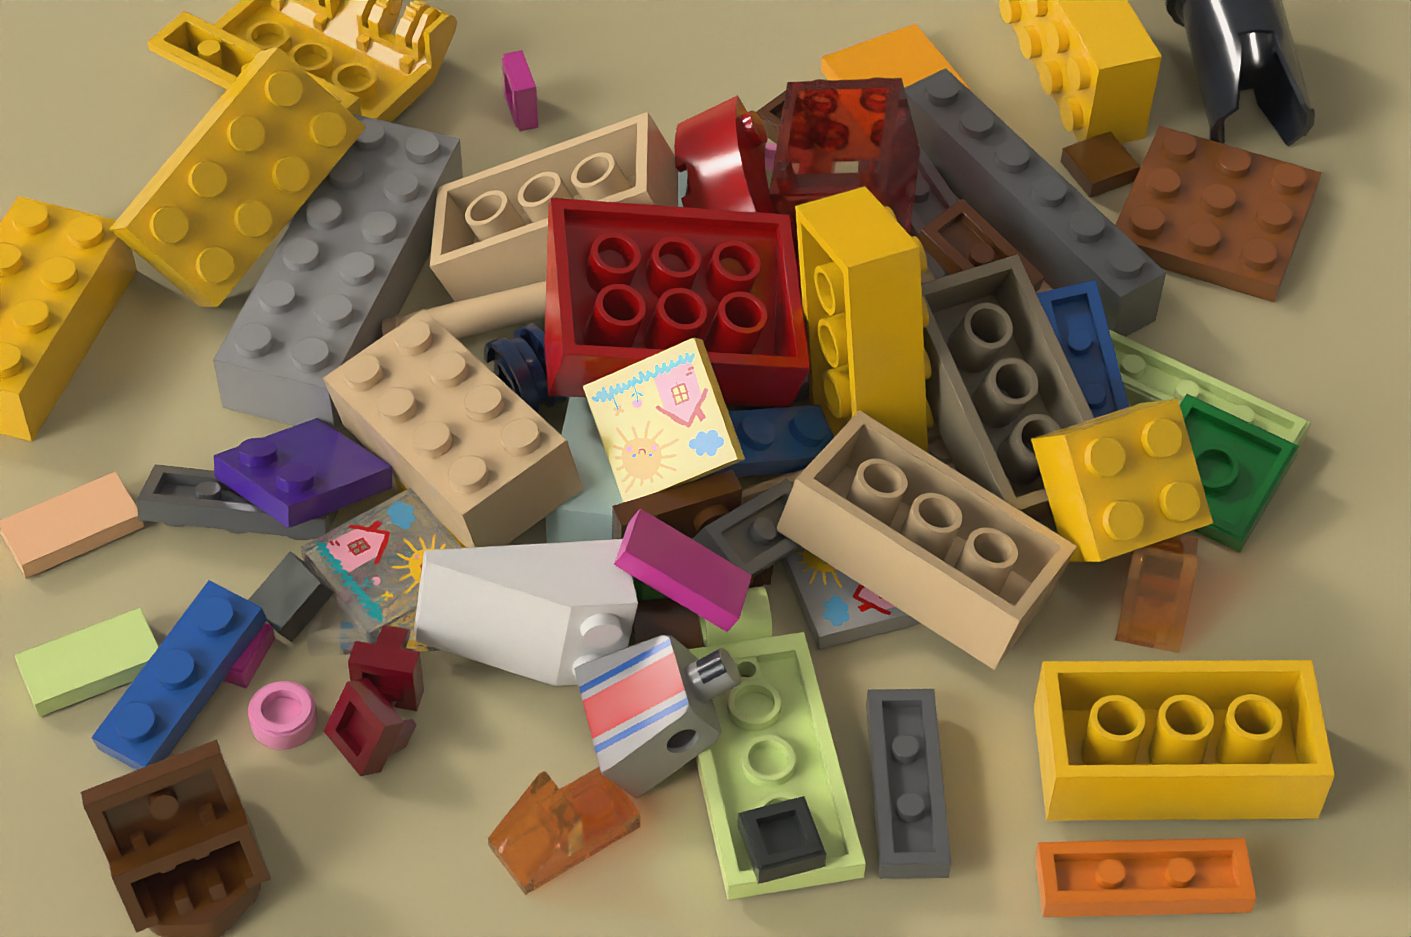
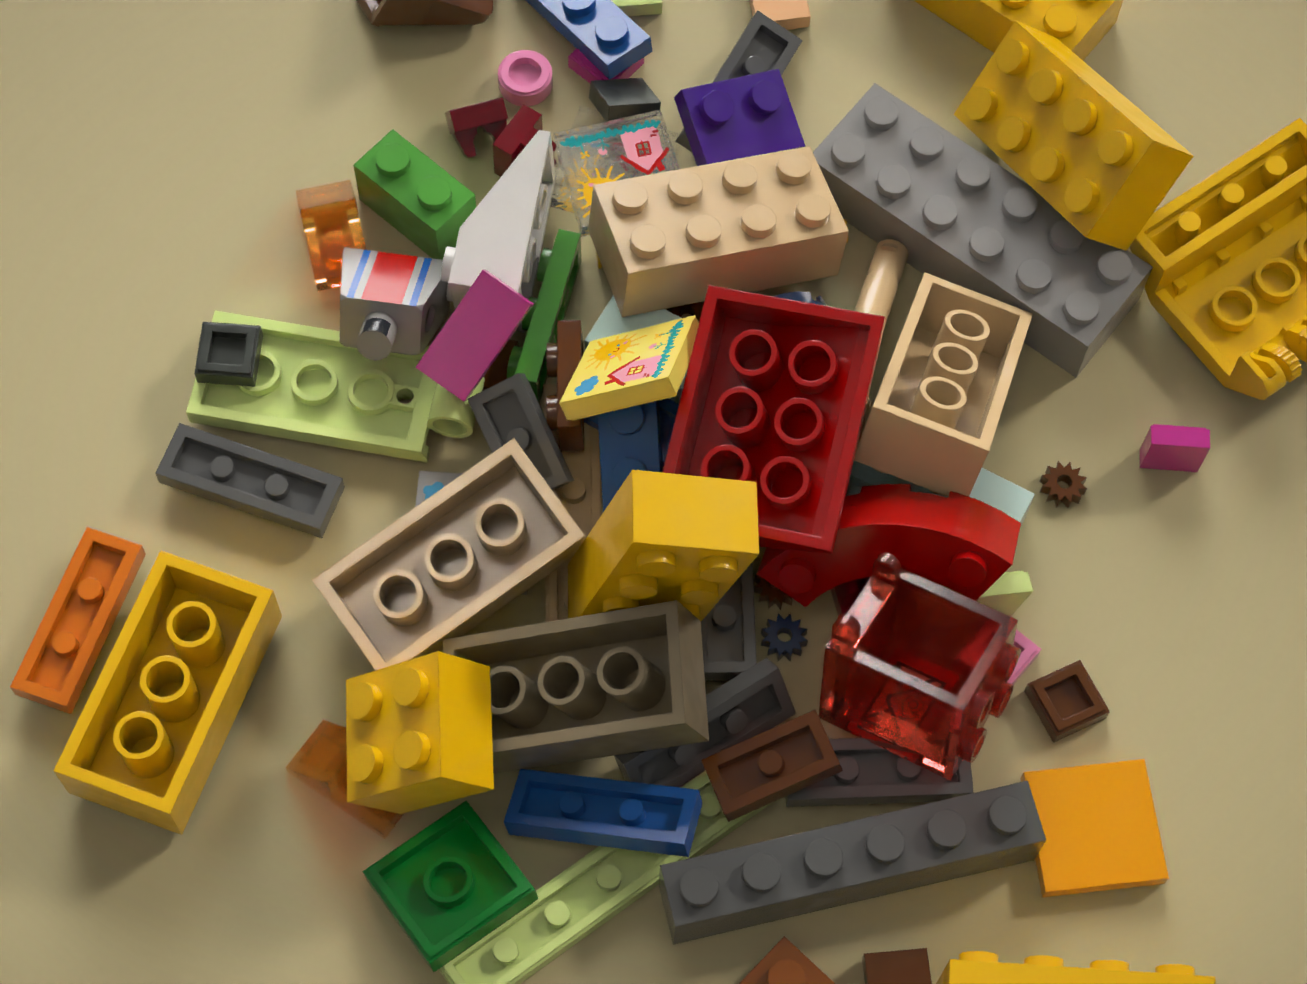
camera: 110 degrees right, 15 degrees up
(497, 742) = (413, 194): none -> bright green brick

